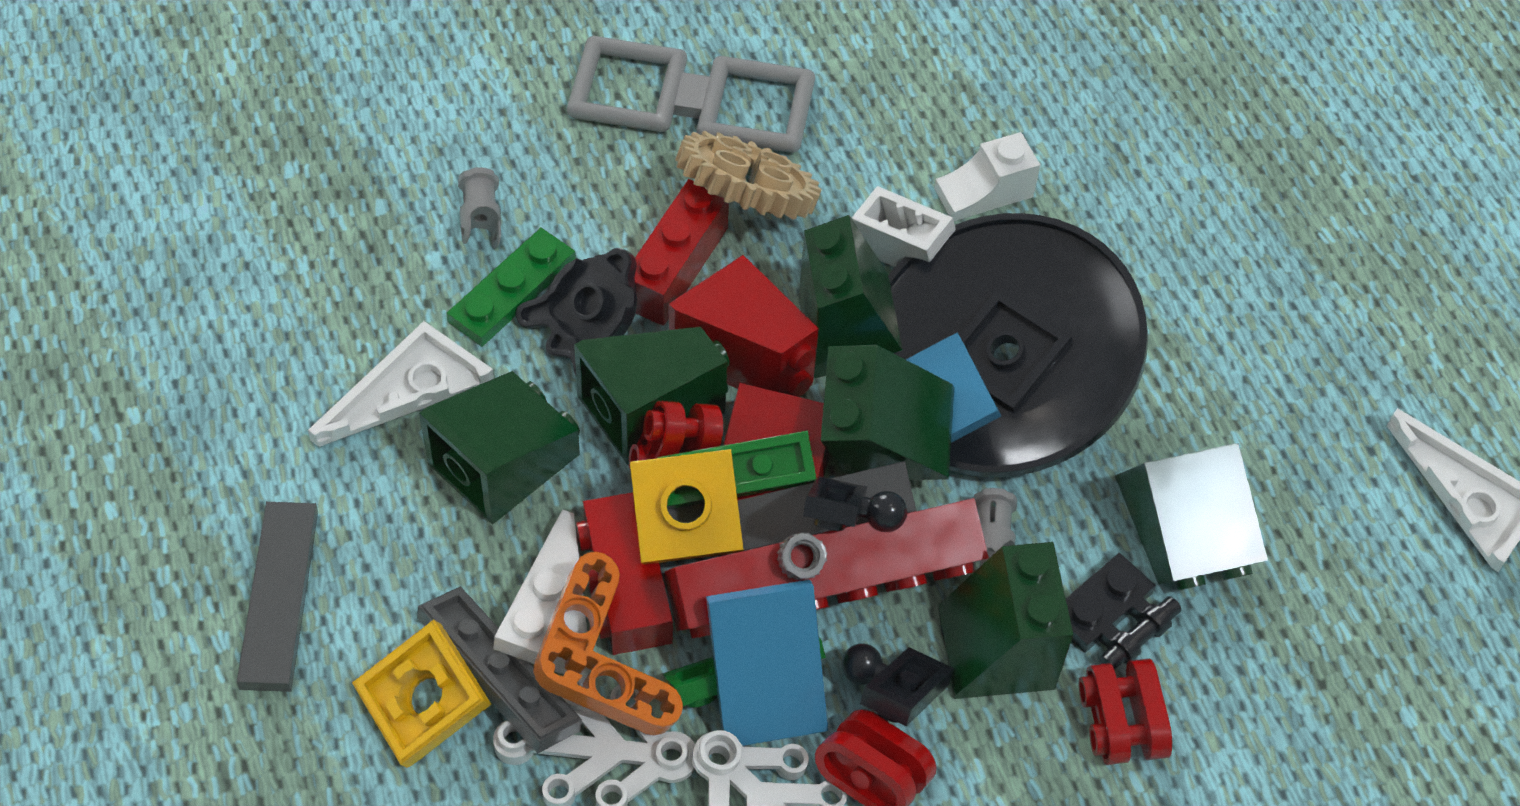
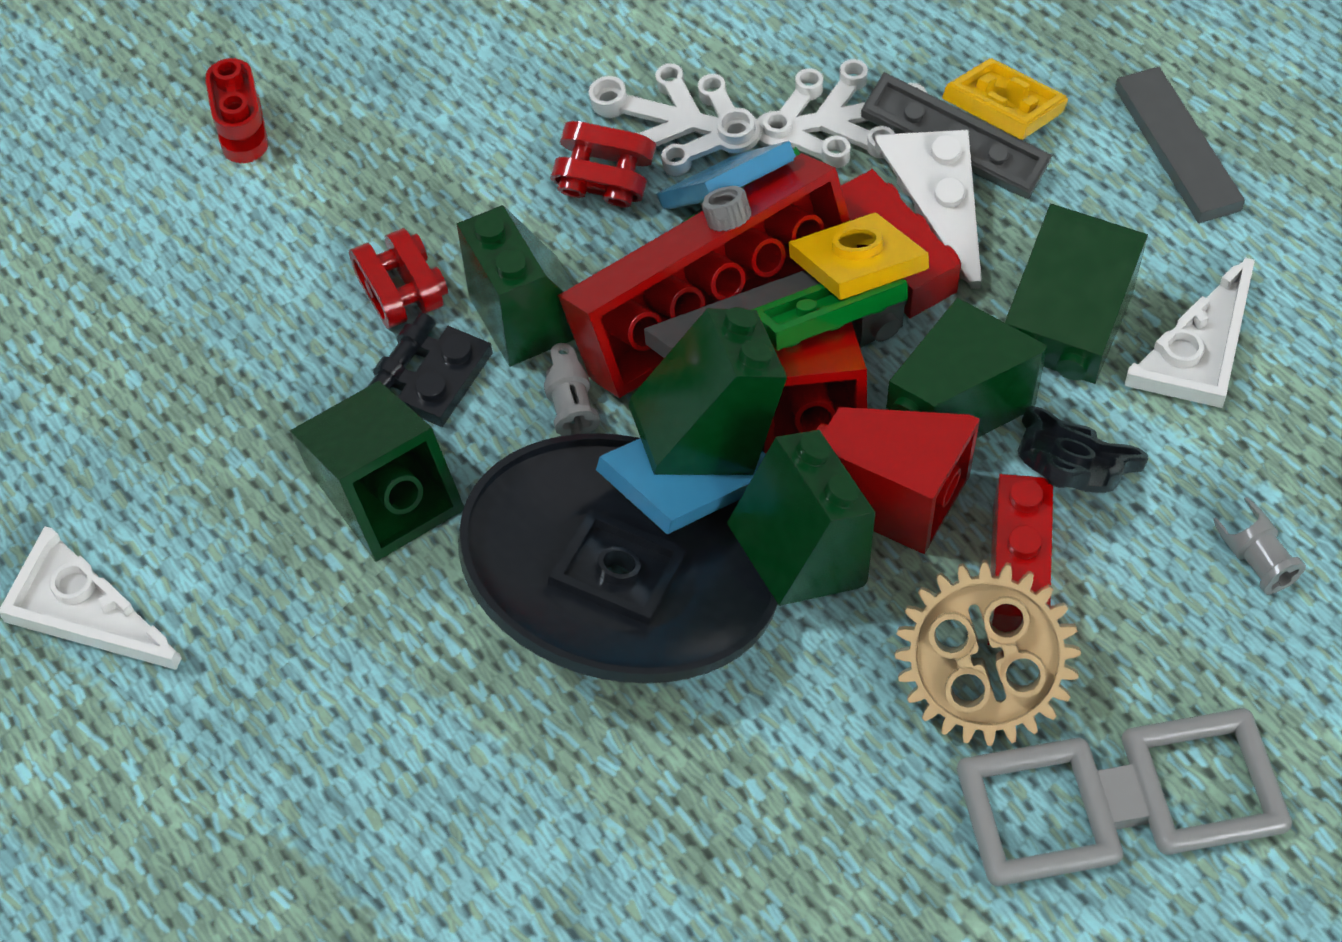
camera: 165 degrees right, 0 degrees up
(510, 284) = (1170, 485): green plate -> none
(579, 653) = (887, 130): orange beam -> none
(670, 432) = (903, 332): red brick -> none
(842, 503) = (713, 265): black plate -> none
(897, 689) = (602, 222): black plate -> none
(901, 227) = (785, 650): white arch -> none
(995, 177) = (711, 796): white arch -> none

